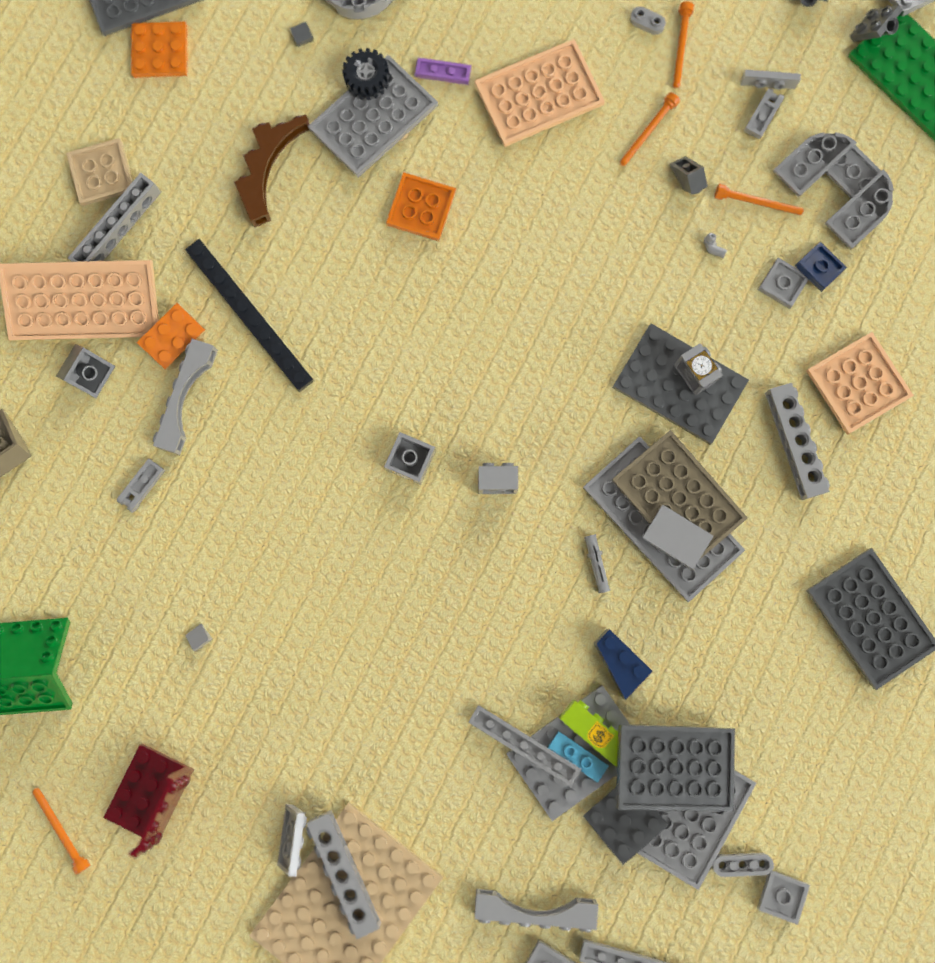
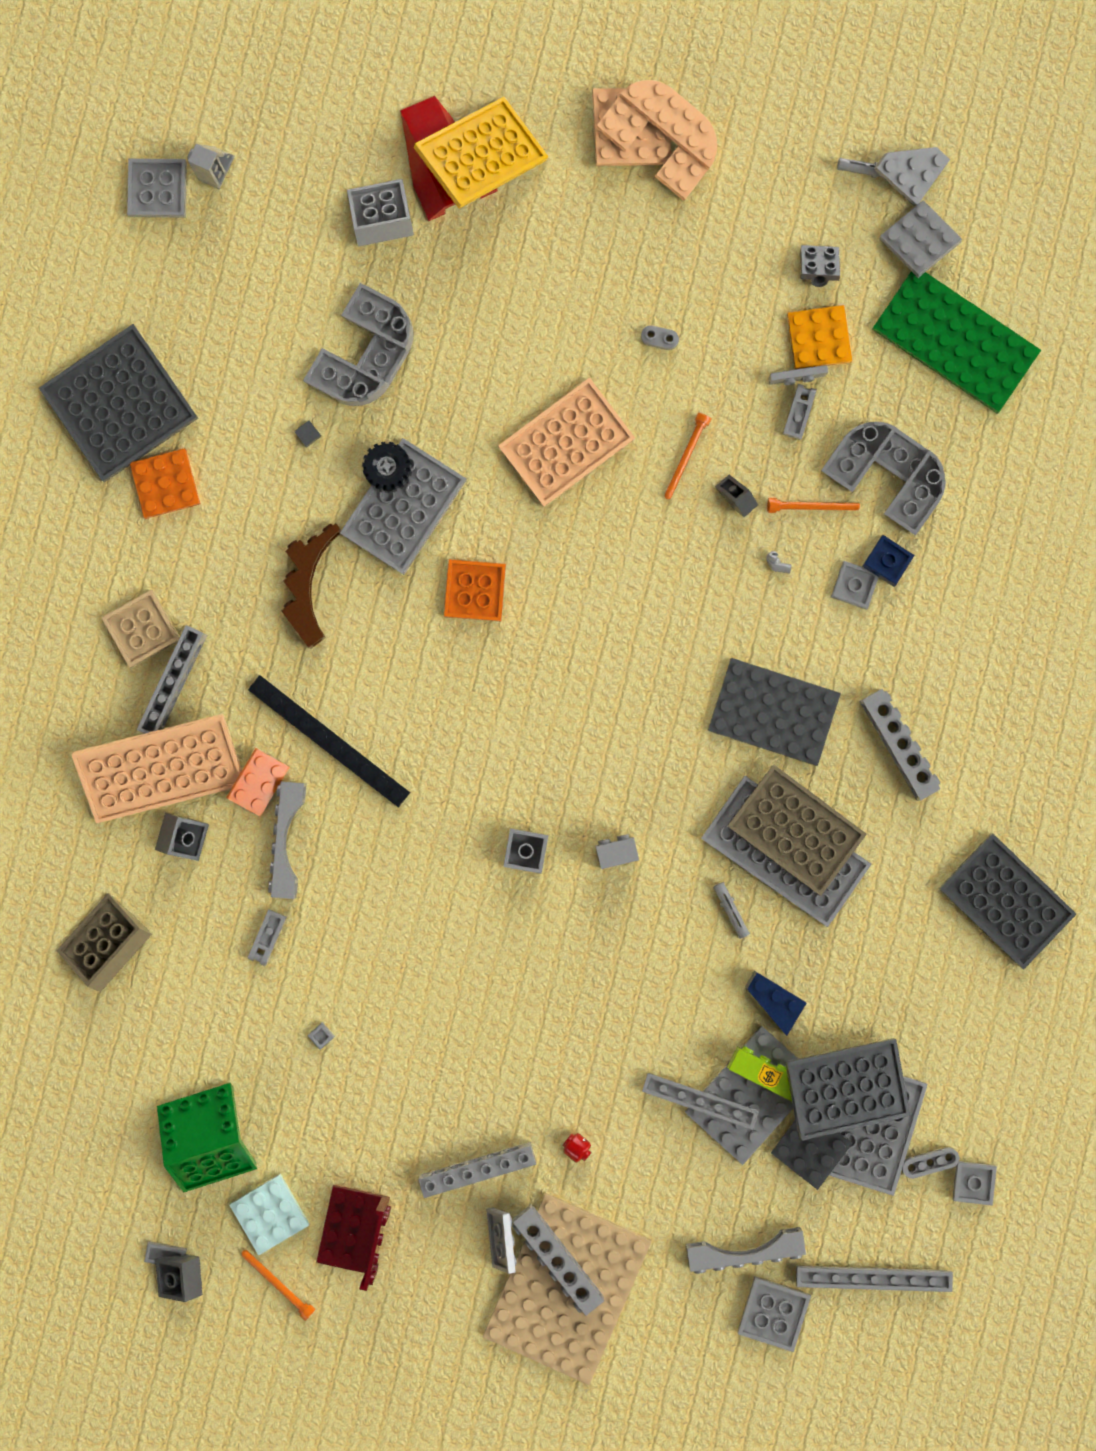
camera: 15 degrees left, 5 degrees up
(70, 758) = (269, 1214): none -> light aqua plate
(168, 593) = (321, 1035): none -> light grey tile
(198, 637) = (362, 1071): light grey slope -> none
(285, 762) = (477, 1169): none -> light grey brick
(390, 763) = (577, 1148): none -> red head
(442, 71) = (462, 440): medium lavender tile -> none
(578, 756) = (753, 1099): medium azure plate -> none
(677, 537) = (802, 869): light grey tile -> none
(685, 10) = (697, 320): orange piece -> none
(698, 369) = (788, 699): light grey brick -> none
(798, 50) = (819, 337): none -> light orange plate
(859, 383) = (949, 671): light nougat plate -> none
(877, 23) = (894, 293): dark grey plate -> none

